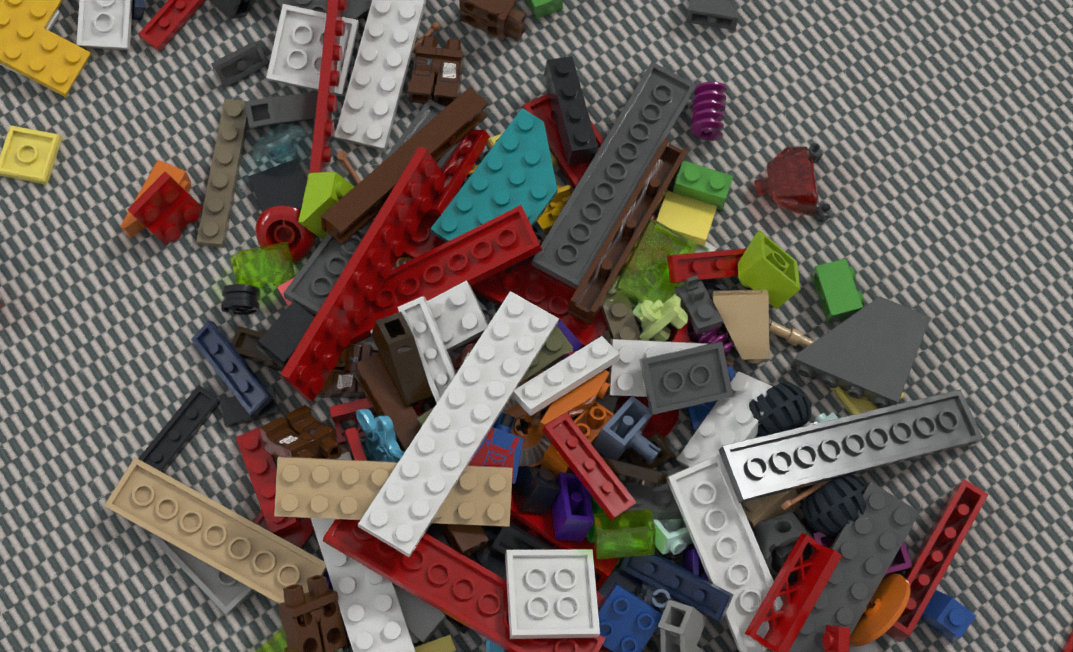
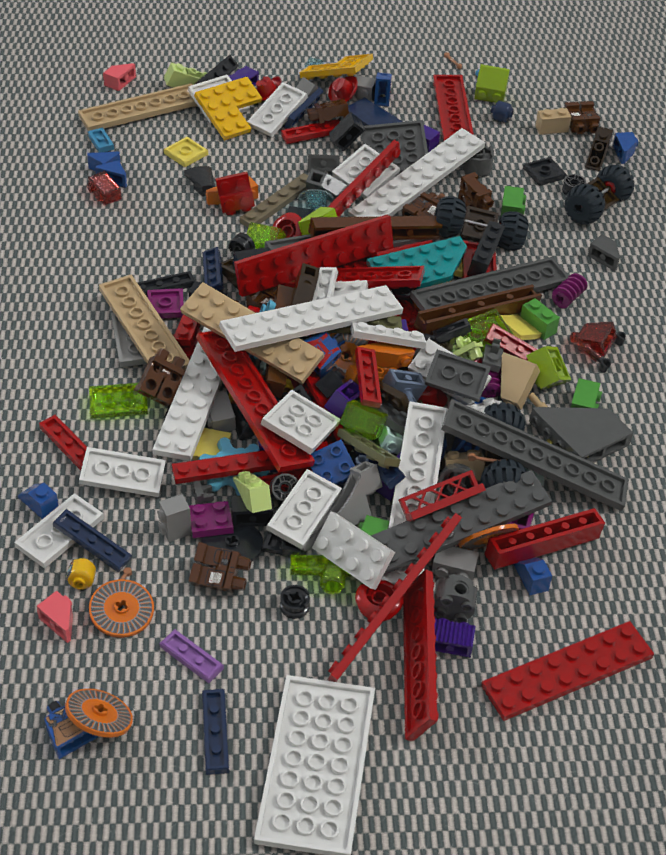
camera: 30 degrees right, 25 degrees down
(92, 198) = (201, 178): none -> black slope
(209, 465) = (167, 302): none -> magenta plate
(521, 61) = (454, 214): none -> black plate
(622, 304) = (450, 331): none -> black plate
(662, 578) = (371, 449): none -> olive plate

